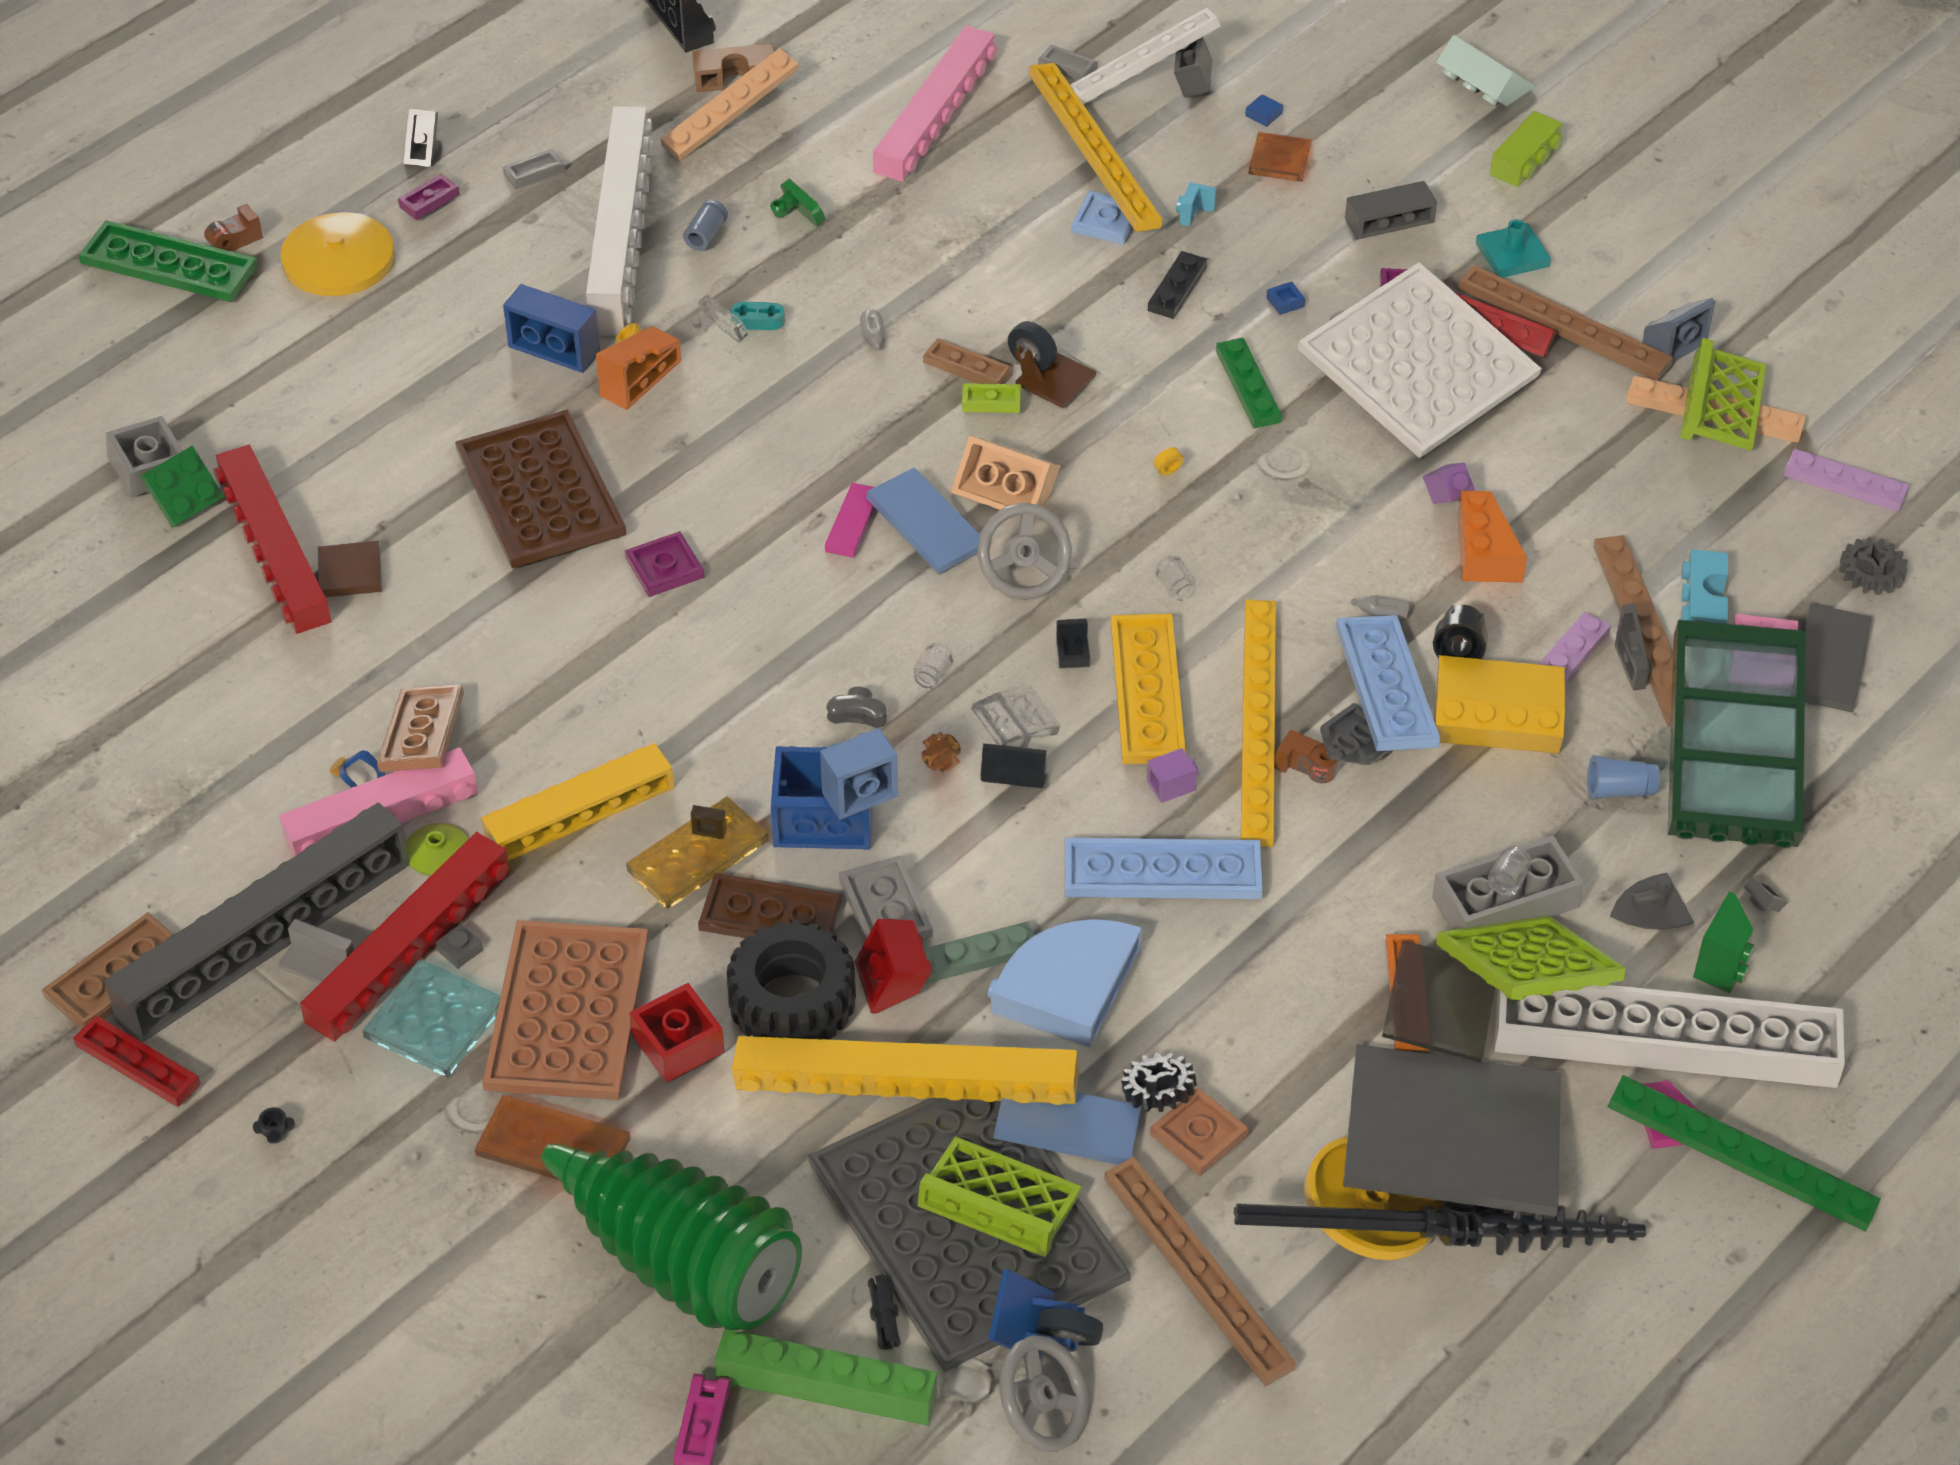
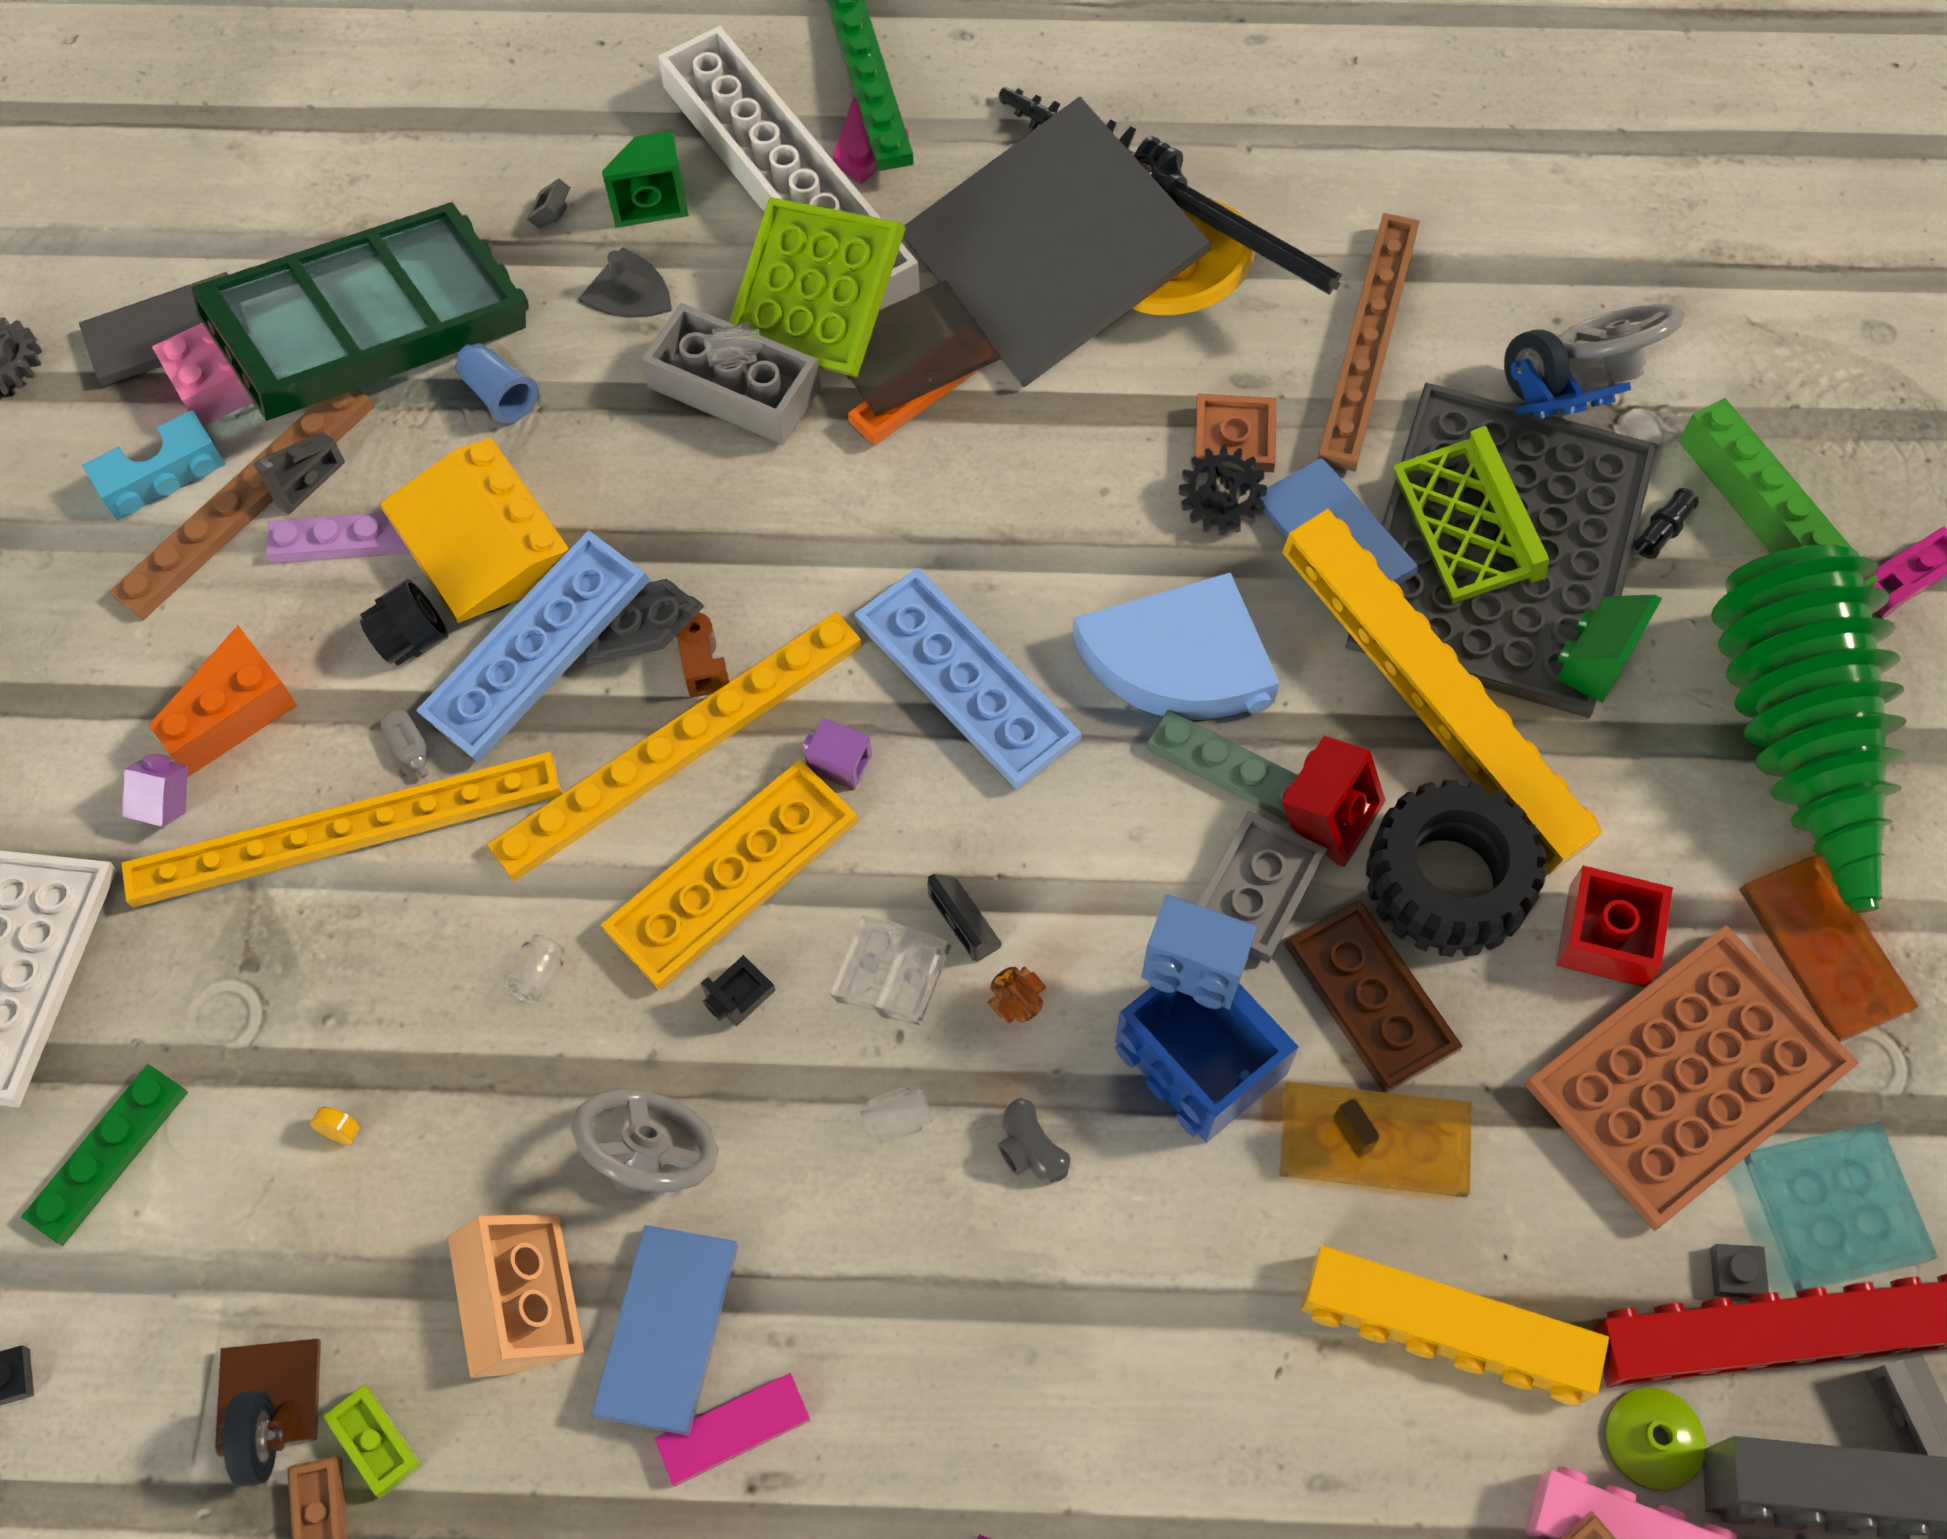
camera: 130 degrees left, 15 degrees up
(835, 1170) = (1605, 643): none -> green slope
(1346, 554) = (340, 829): none -> yellow plate

